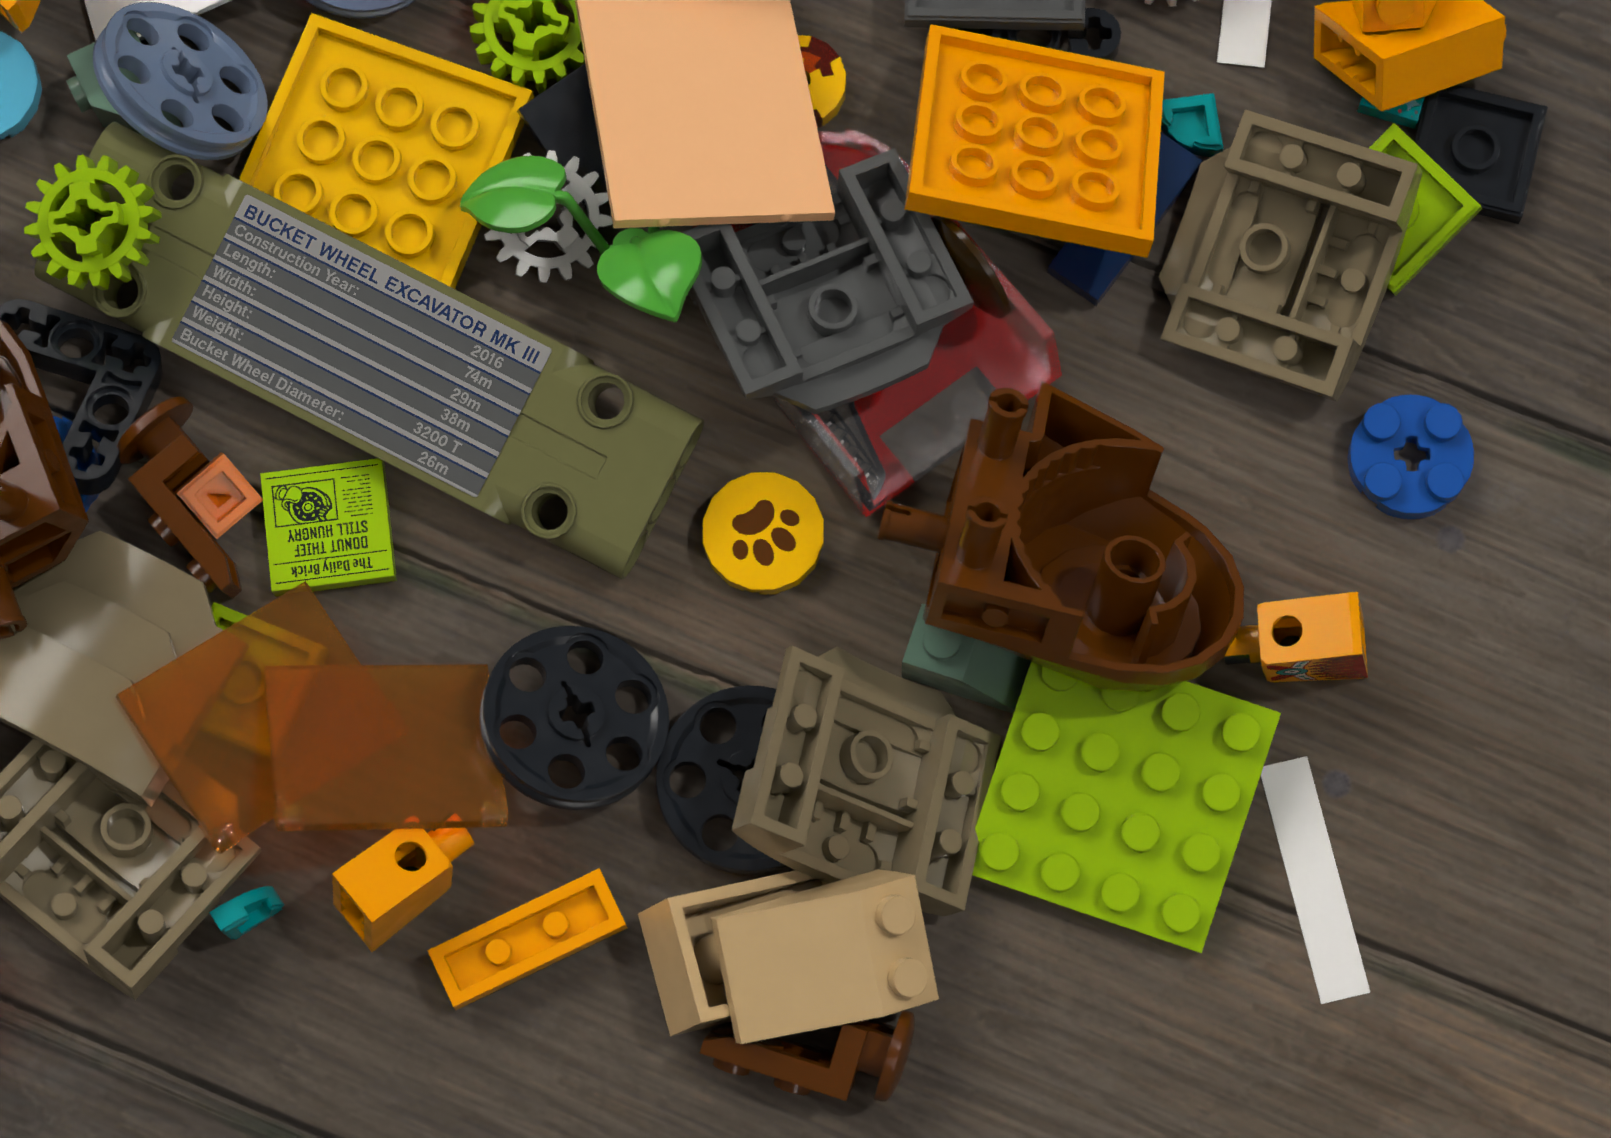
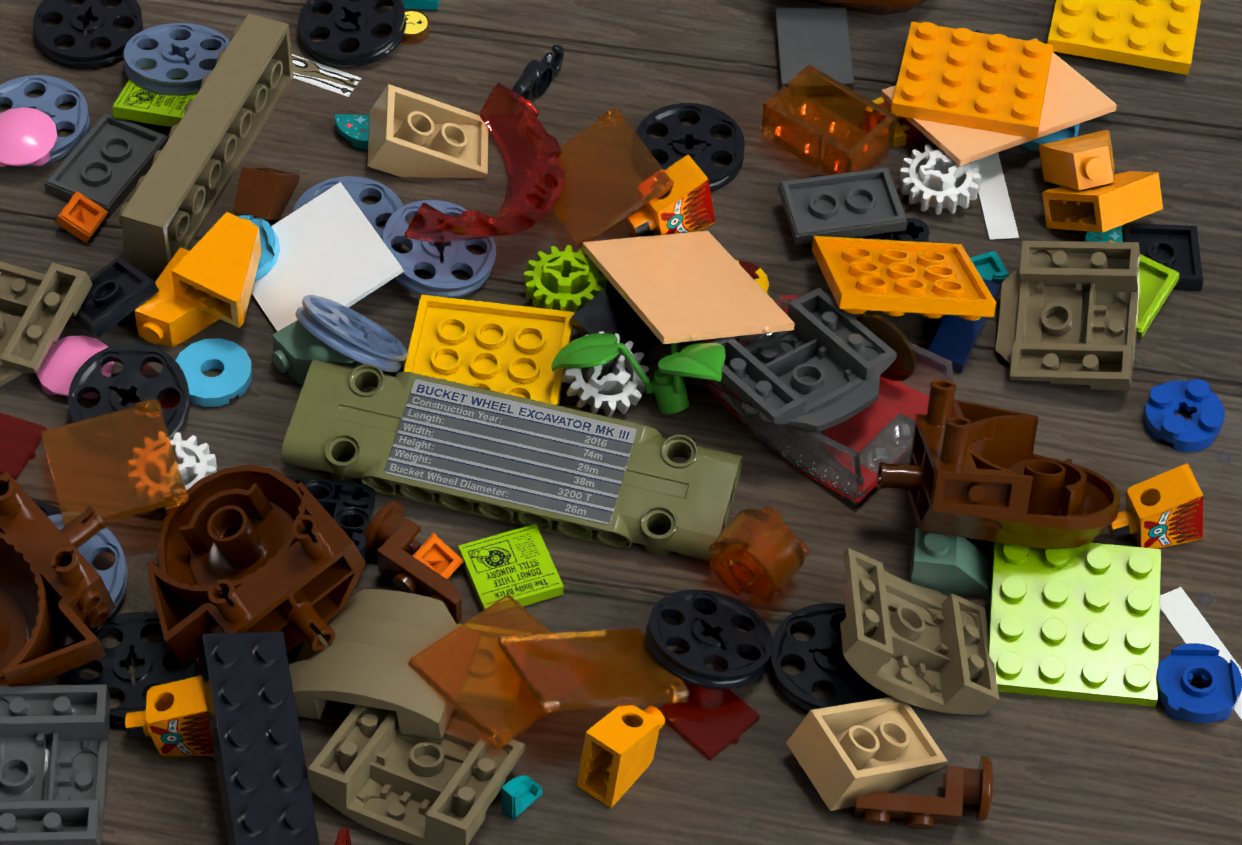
camera: 20 degrees left, 25 degrees down
(73, 204) = (340, 410): lime gear -> none
(527, 939) = (716, 774): light orange plate -> none
(550, 843) = (710, 719): none -> clear red piece
(678, 594) = (757, 554): none -> clear orange brick
(763, 533) = (806, 516): yellow tile -> none
(825, 956) = (923, 729): tan slope -> none
(1300, 917) = (1193, 704): none -> blue plate

